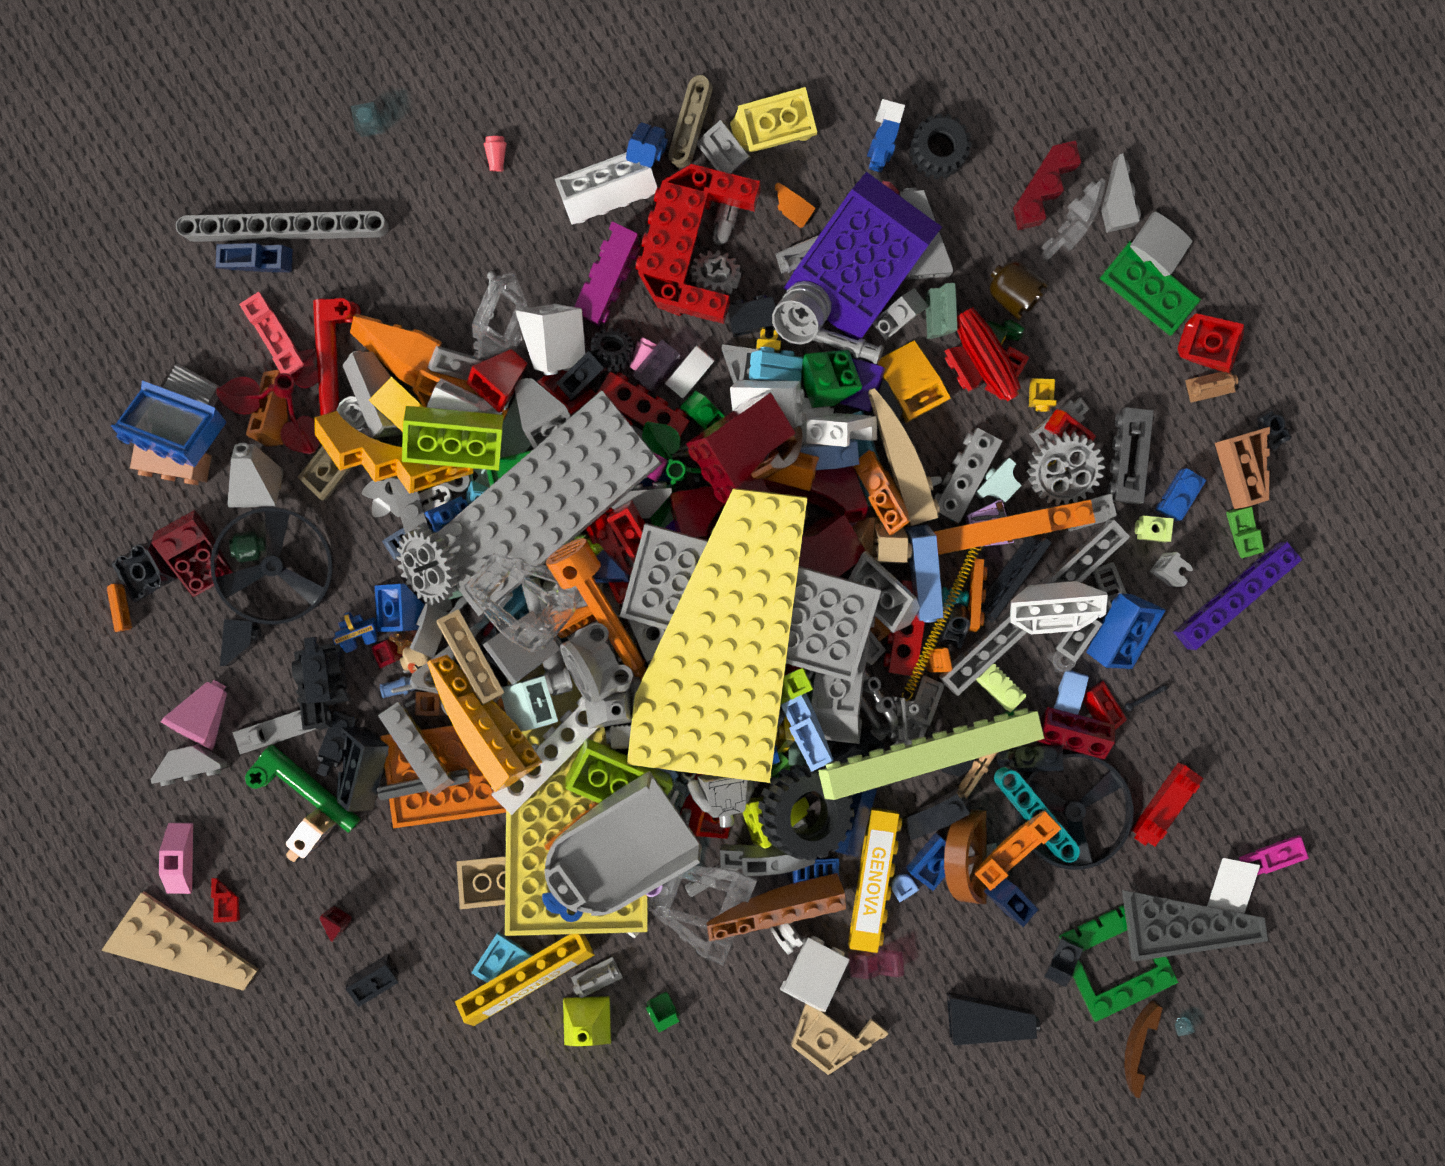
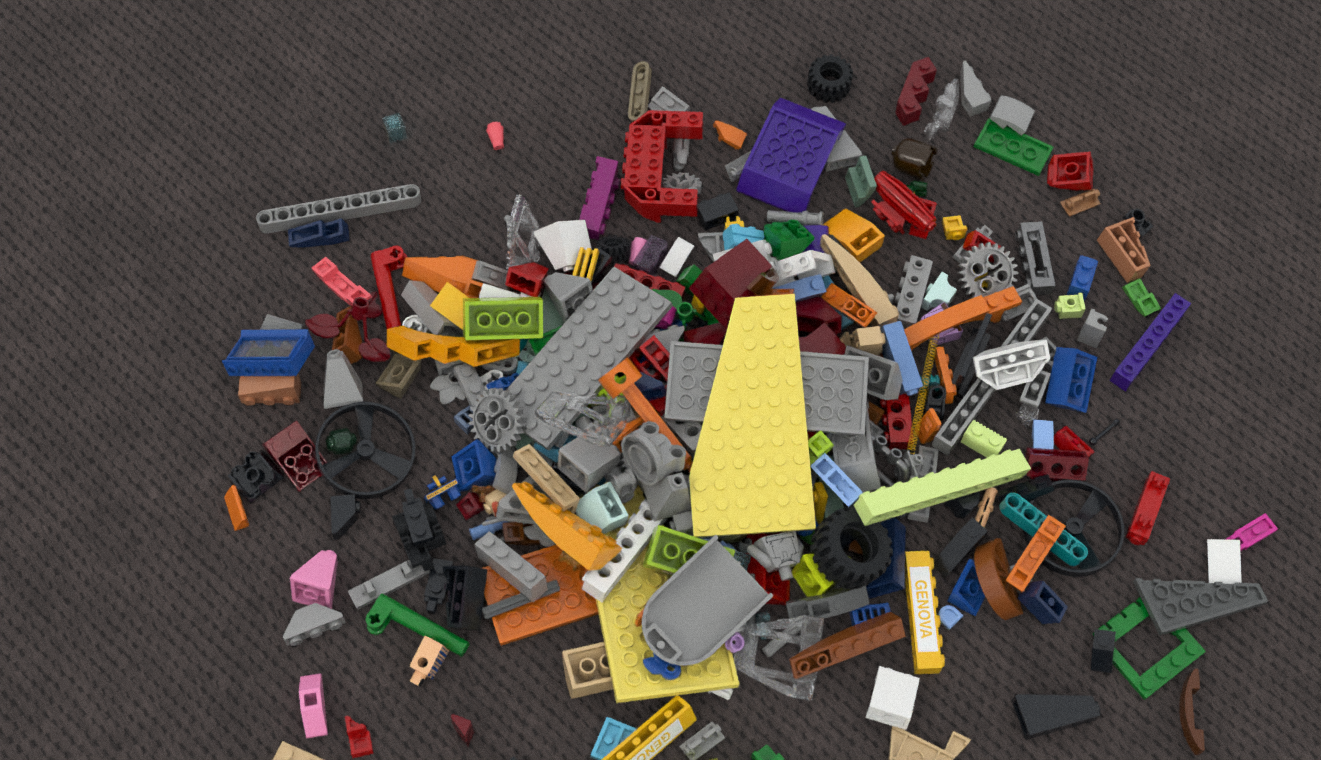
camera: 15 degrees left, 25 degrees down
(561, 372) = (595, 253): none -> yellow tile
(604, 187) = (586, 143): white slope -> none
(646, 145) = (611, 108): blue brick -> none
(774, 121) = (703, 81): light yellow slope -> none
(790, 935) = (860, 670): white wheel -> none
(801, 312) = (748, 204): light grey wheel -> none
(871, 964) = (943, 684): clear pink slope -> none
(883, 142) = (787, 69): blue hips -> none
(900, 314) = (829, 191): light grey slope -> none
(1184, 1026) = (1223, 688): clear light blue hinge -> none

